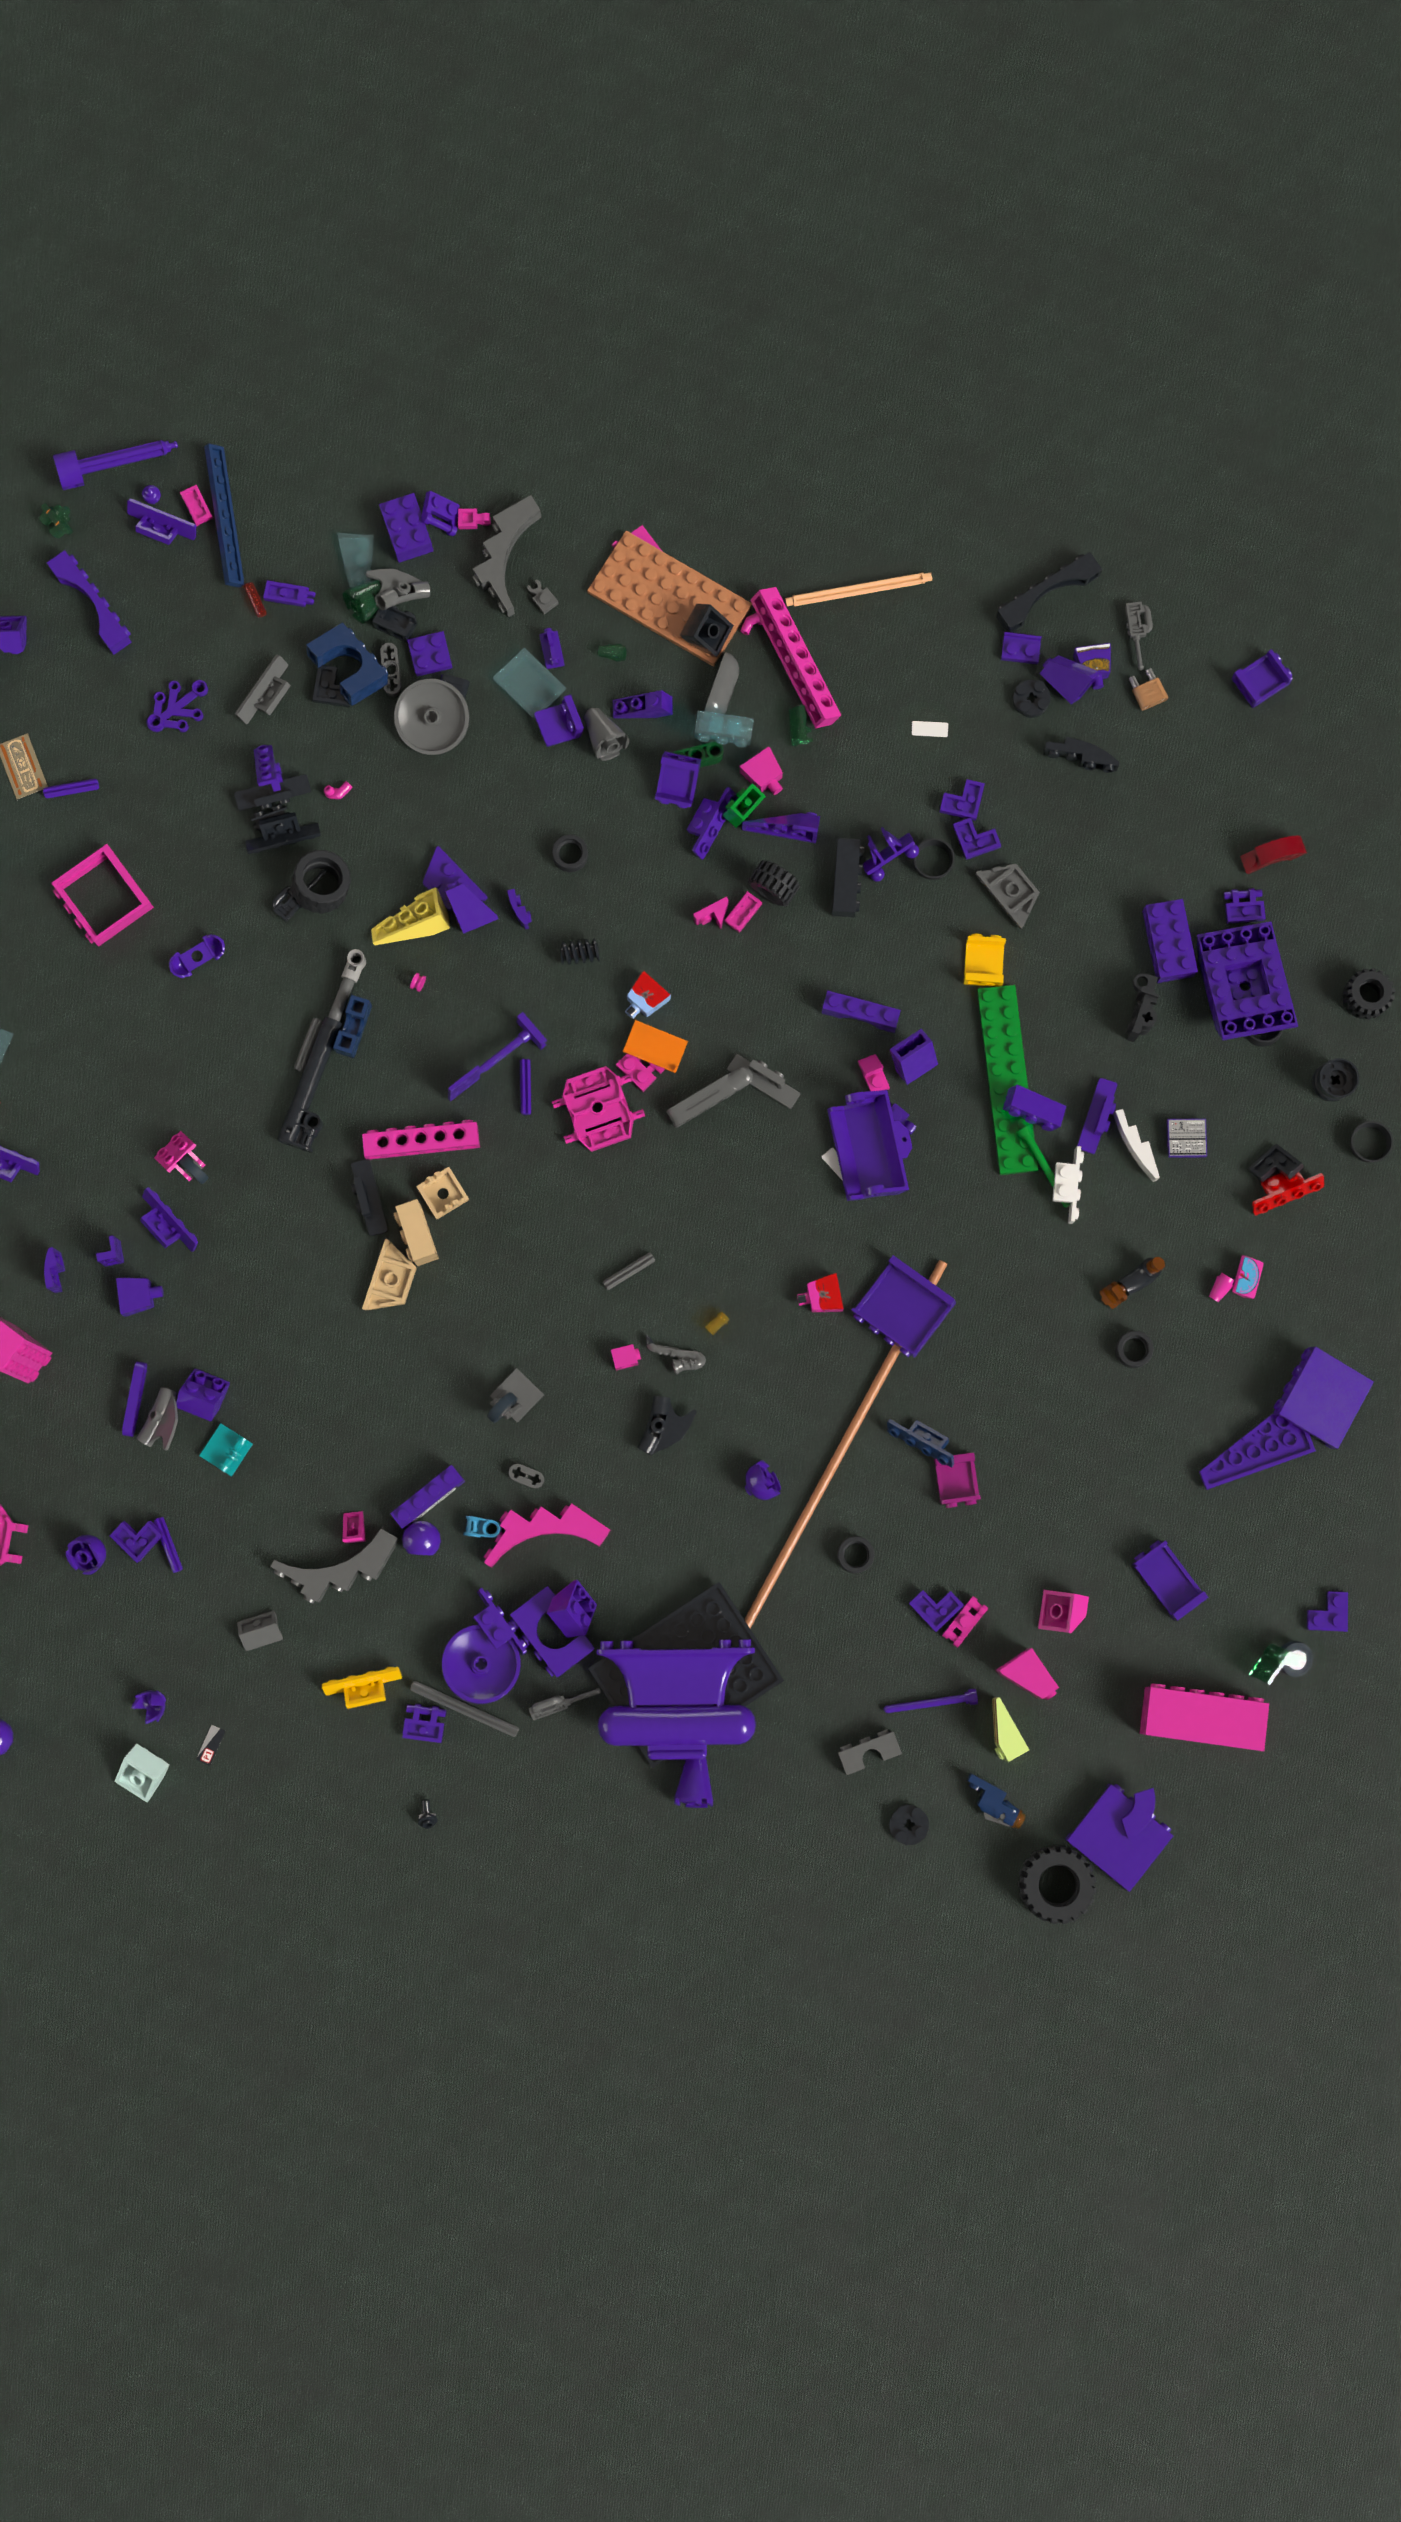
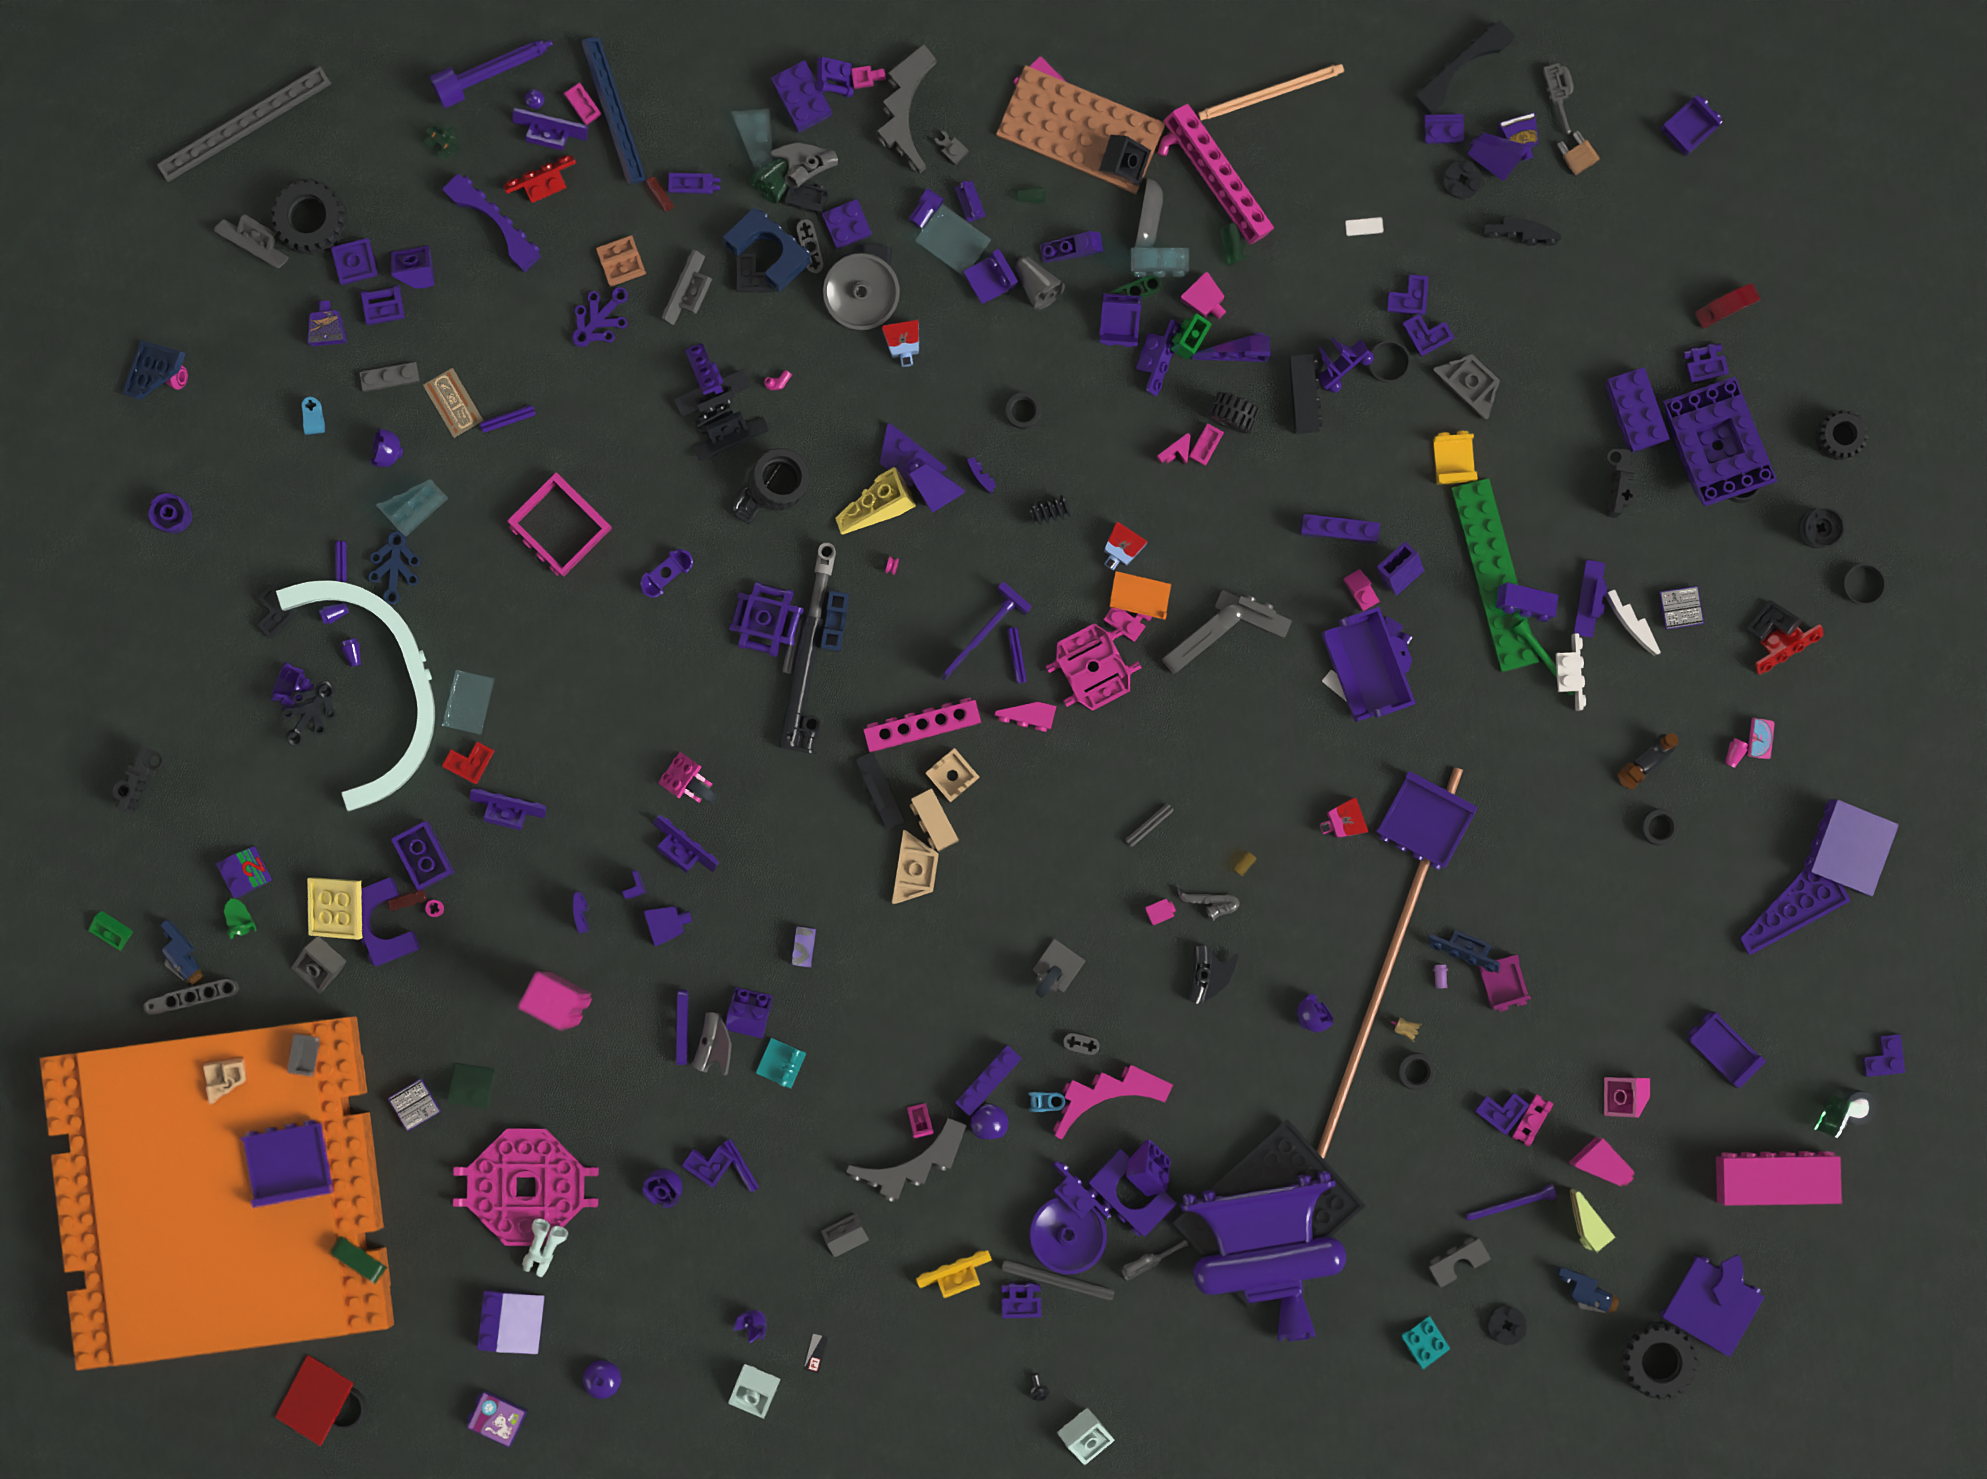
camera: 15 degrees left, 5 degrees up
(144, 572) = (543, 181): none -> red bracket
(207, 656) = (621, 261): none -> nougat slope
(267, 1338) = (803, 947): none -> slope
(285, 1014) = (765, 618): none -> dark purple brick
(465, 769) = (903, 340): none -> torso
(466, 1871) = (1085, 1436): none -> light aqua slope
(510, 646) = (928, 204): none -> dark purple piece
(531, 1145) = (1034, 714): none -> dark pink slope
(823, 1829) = (1425, 1342): none -> teal hinge
(851, 1509) = (1406, 1028): none -> pearl gold piece
(894, 1463) = (1440, 976): none -> medium lavender pin

